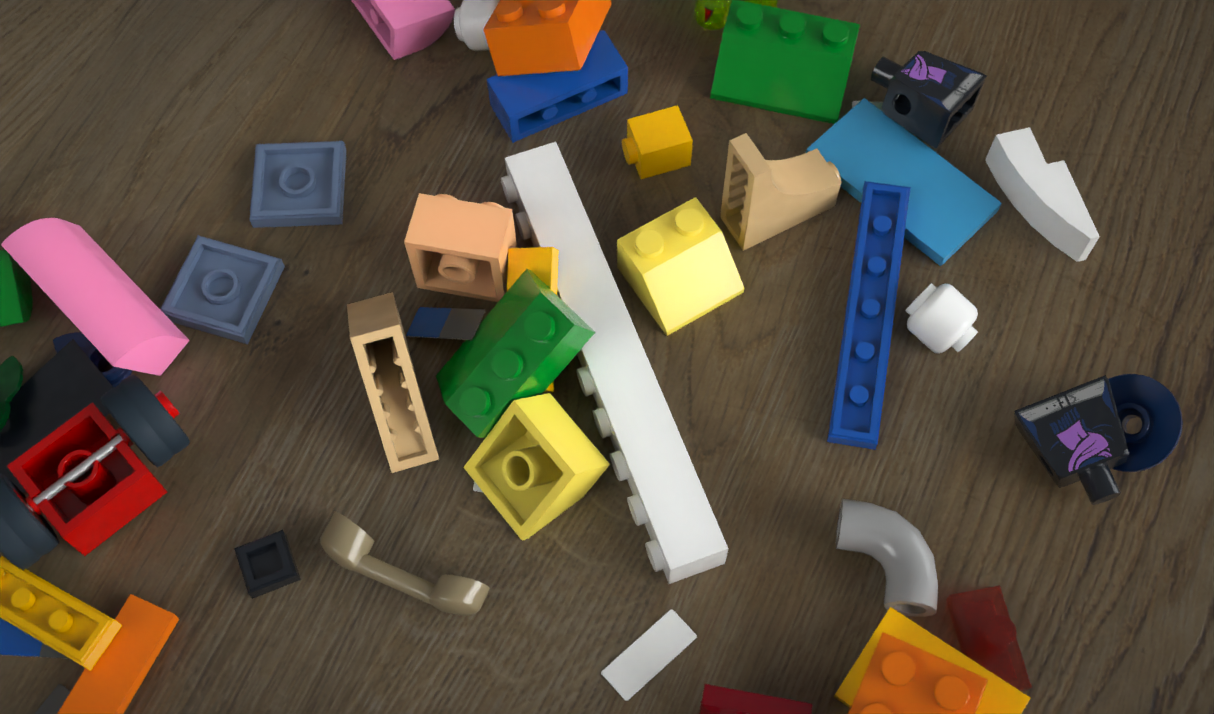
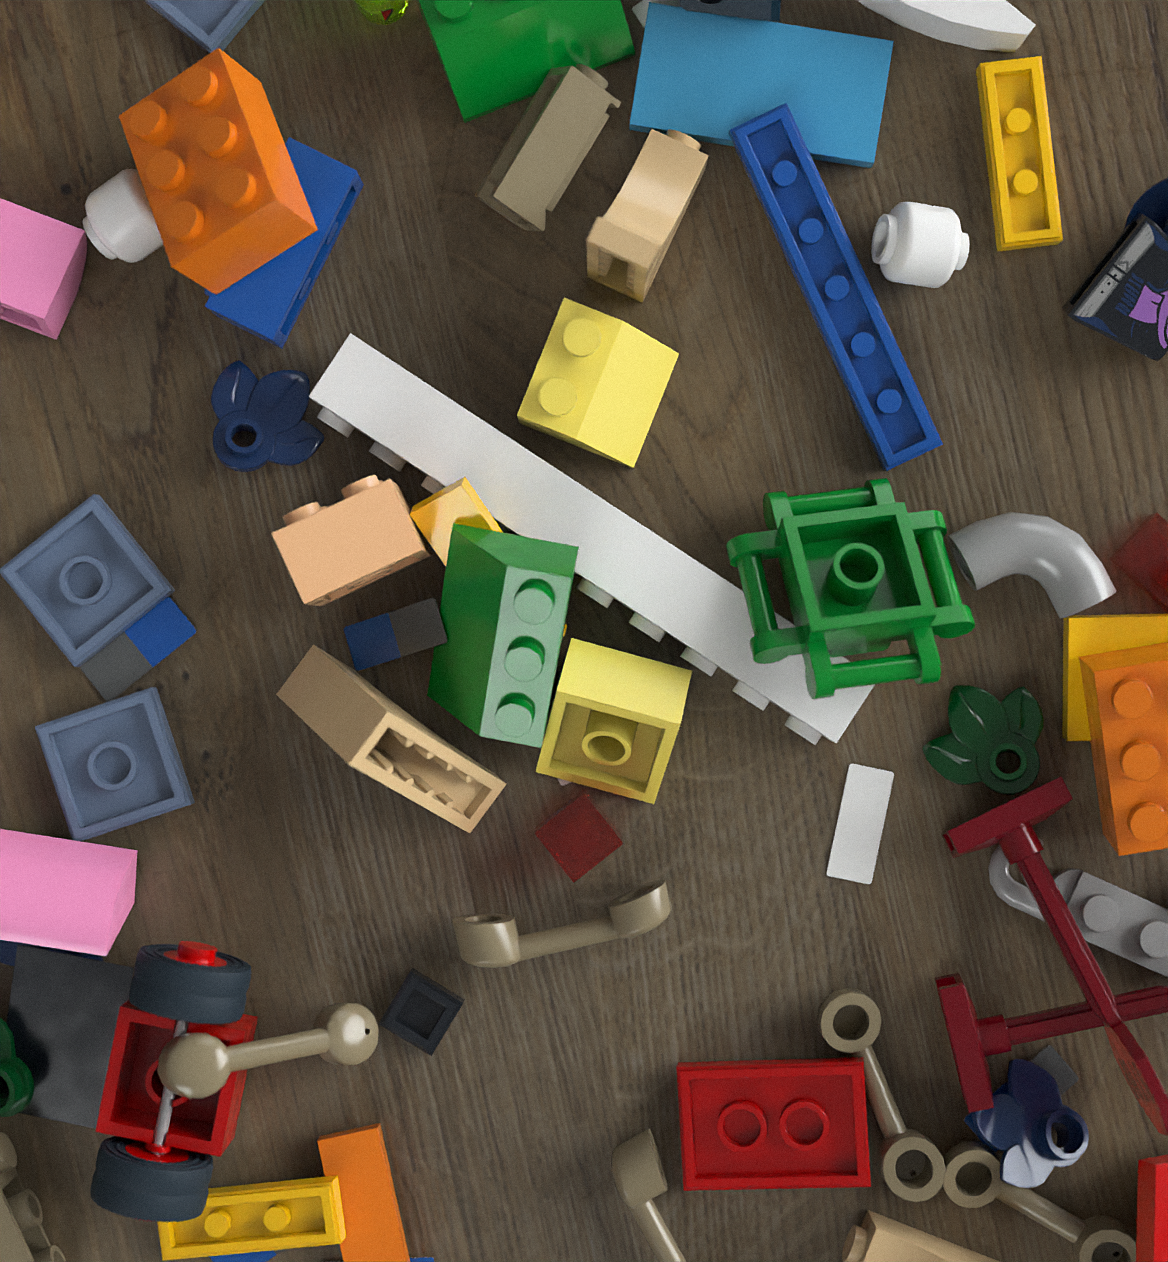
camera: 40 degrees left, 25 degrees up
(105, 460) = (200, 1063): none -> dark tan piece
(294, 239) = (138, 649): none -> sticker
(457, 515) = (579, 835): none -> clear red brick
(468, 165) = (268, 410): none -> dark blue plate
(658, 142) = (456, 239): yellow brick -> none
(753, 477) = (851, 586): none -> green brick
(762, 118) = (547, 146): none -> dark tan window
(779, 649) = (984, 731): none -> dark green plate
(1043, 315) = (1019, 153): none -> yellow tile

